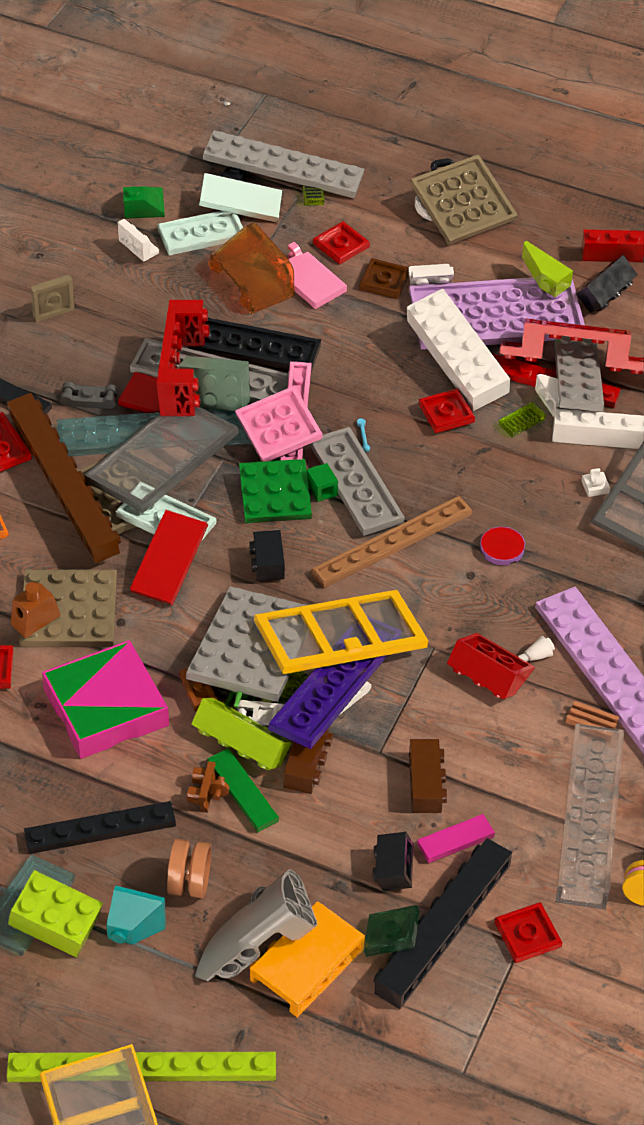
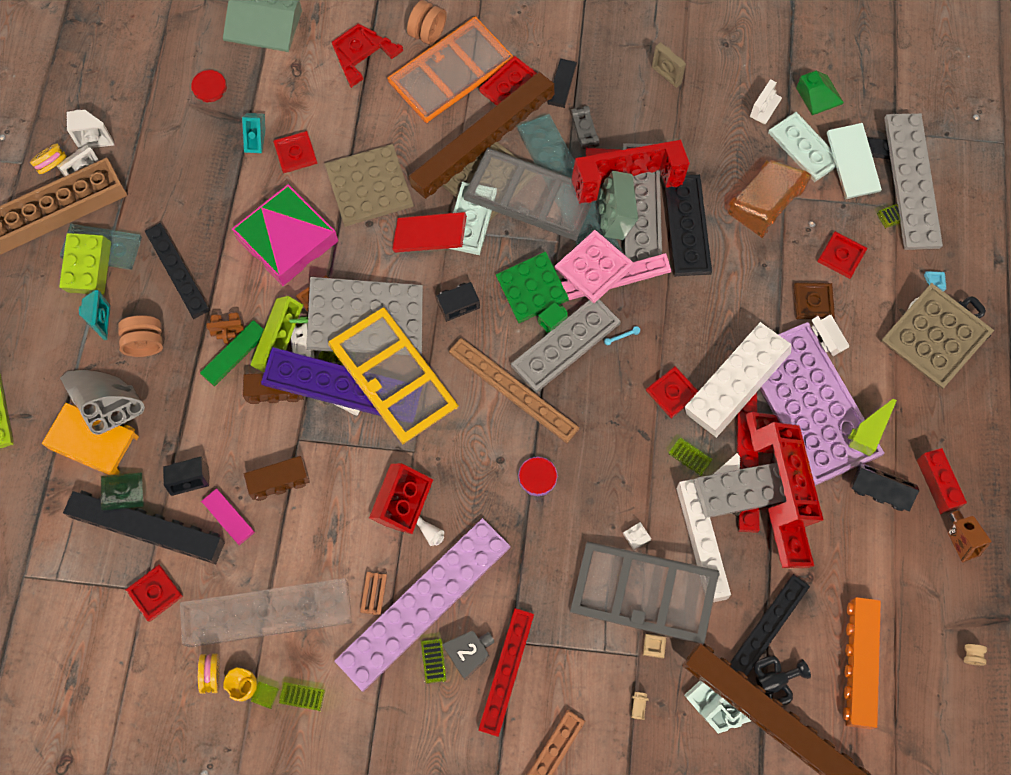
camera: 75 degrees right, 20 degrees up
(33, 609) = (343, 159): dark orange torso -> none
(312, 279) = (786, 241): bright pink tile -> none
(398, 186) = (936, 278): none -> medium azure tile

